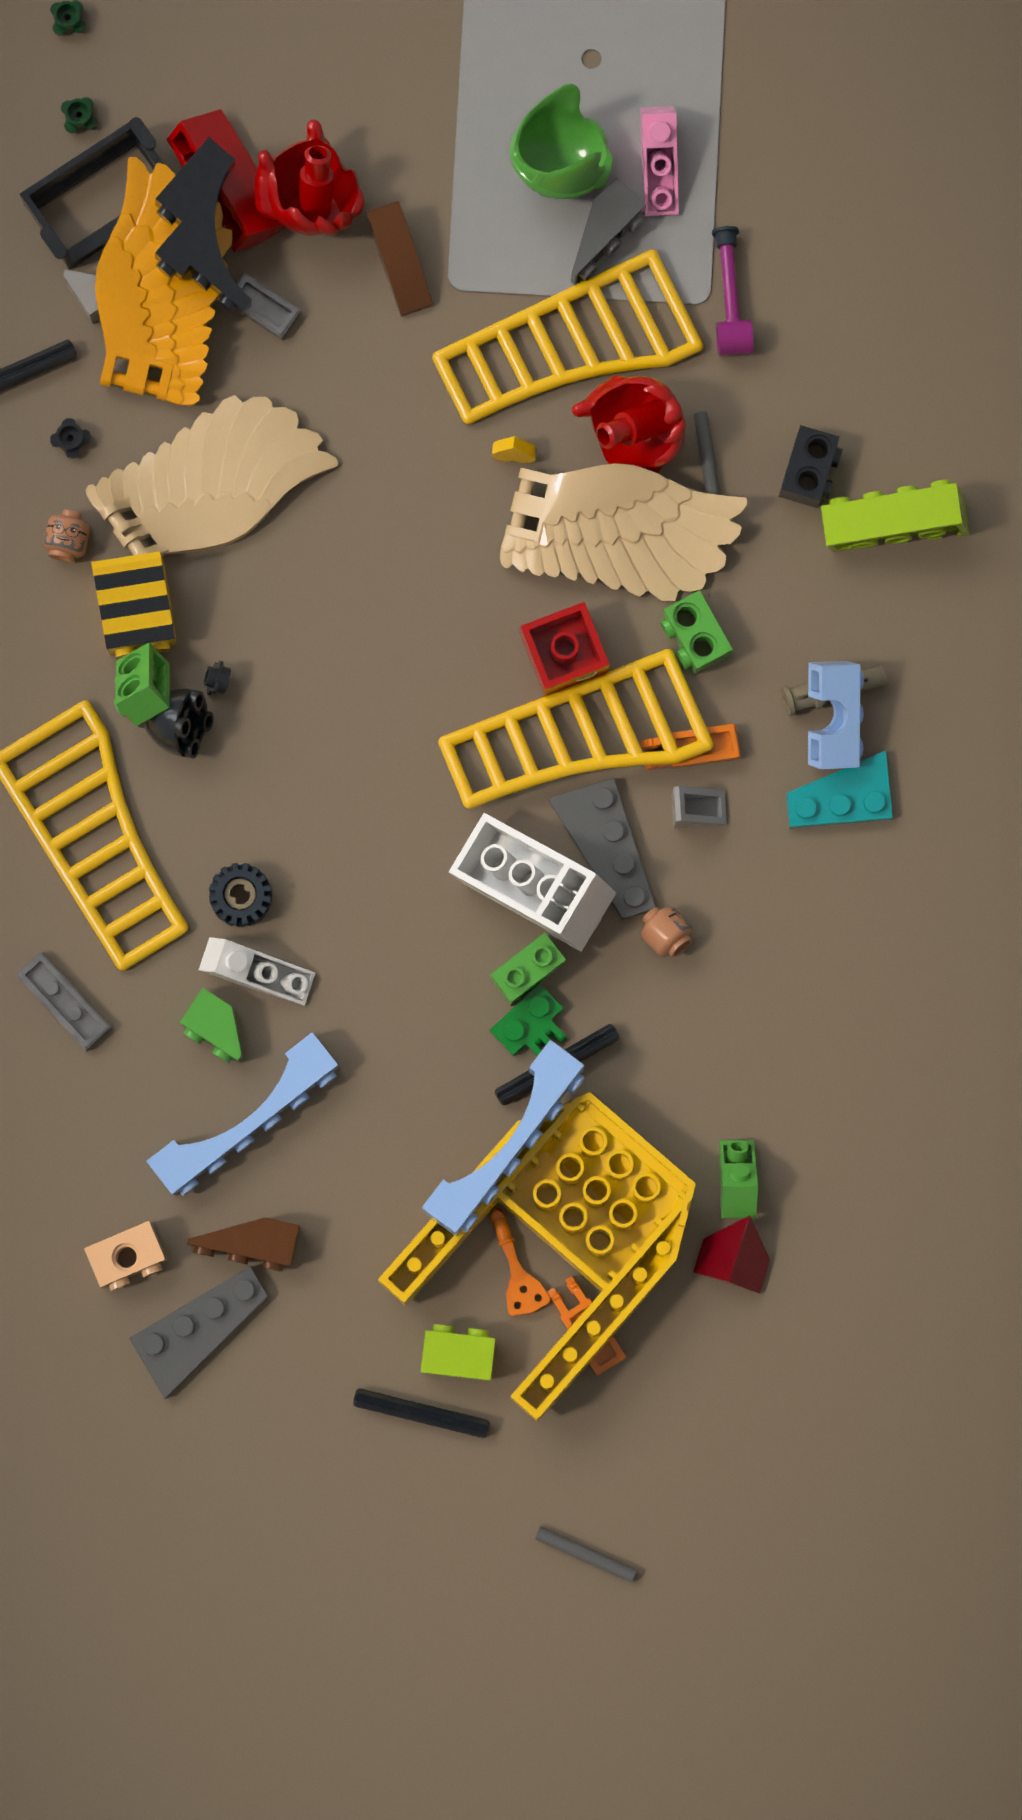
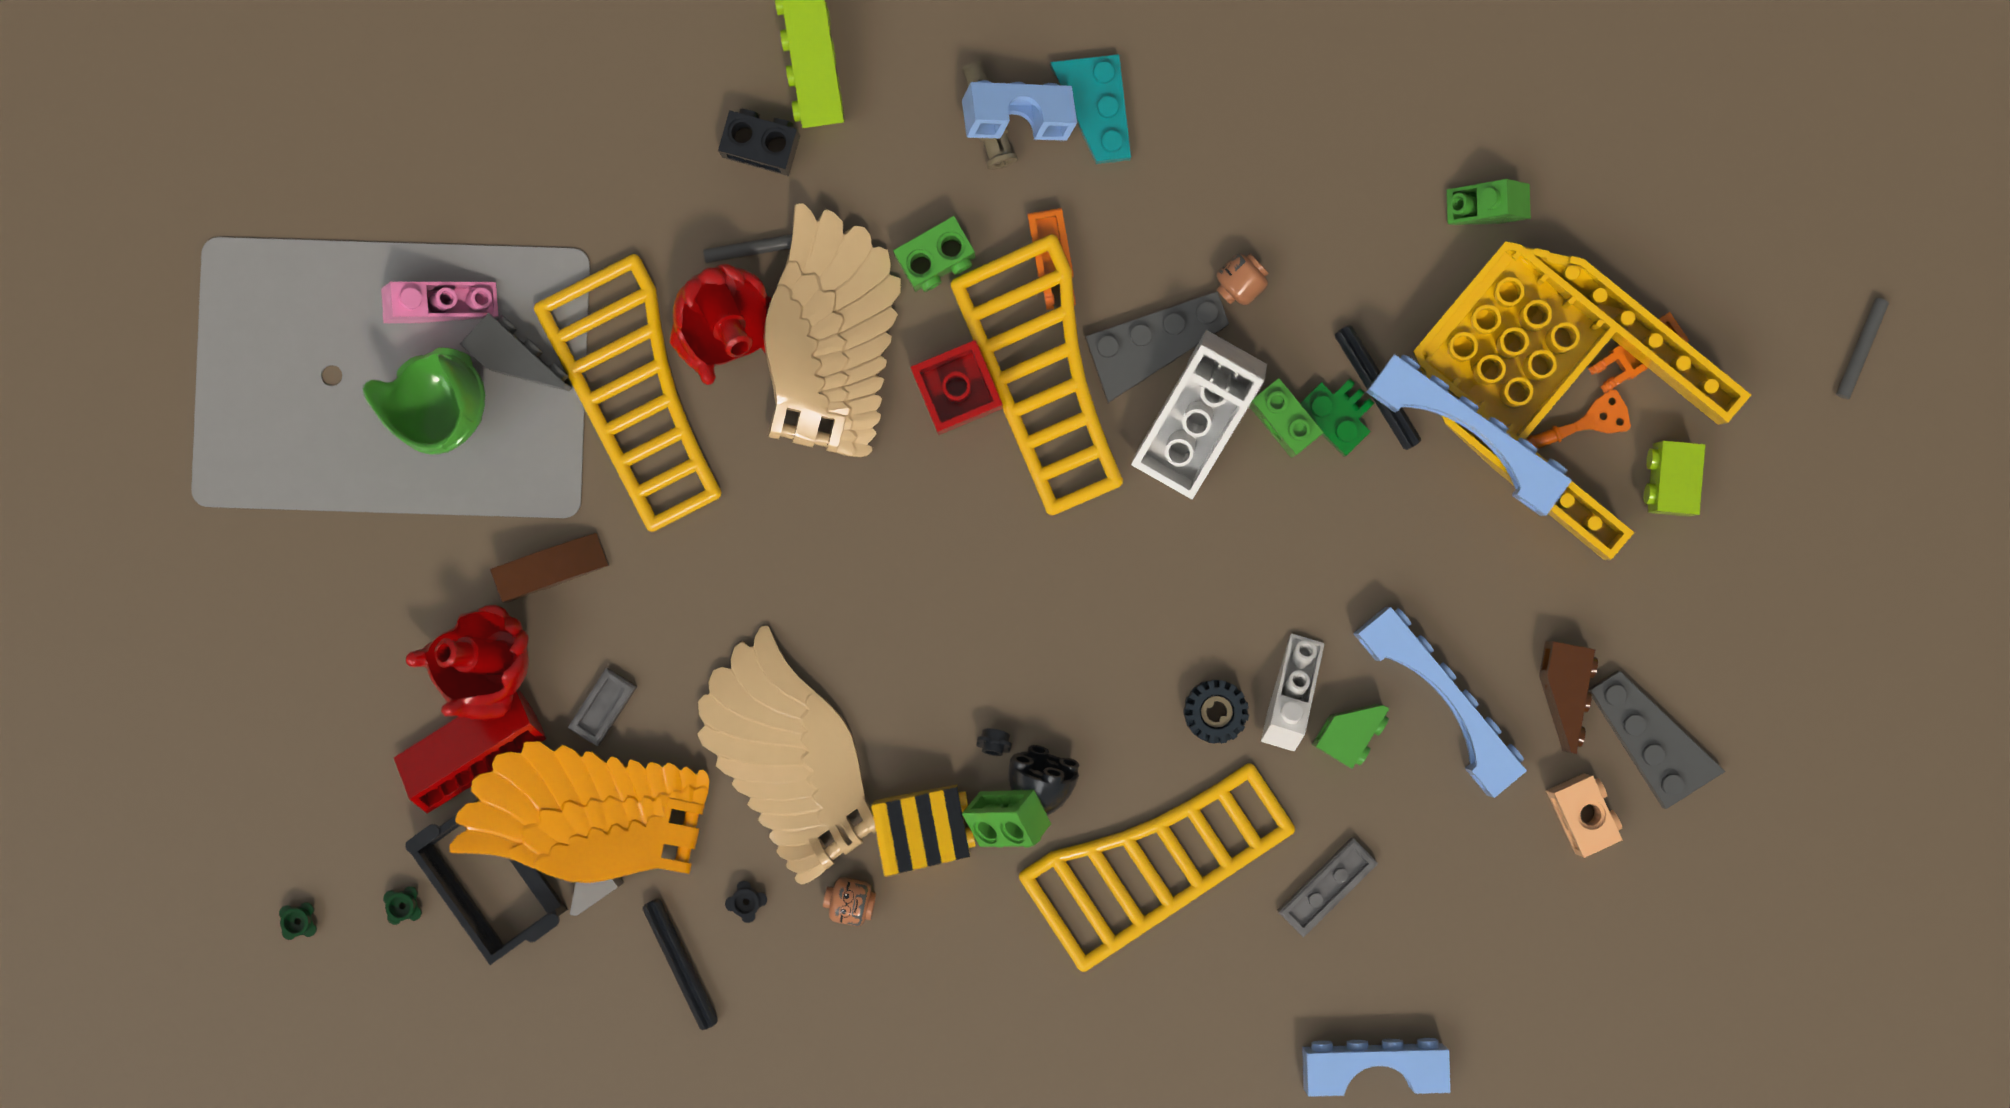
camera: 85 degrees left, 5 degrees up
(193, 245) = (544, 781): black arch -> none
(421, 1413) = (1730, 514): black axle -> none
(514, 450) = (749, 444): yellow tile -> none
(698, 807) = (1114, 250): light grey slope -> none
(734, 334) = (622, 221): magenta piece -> none
(734, 1256) = (1567, 207): dark red slope -> none

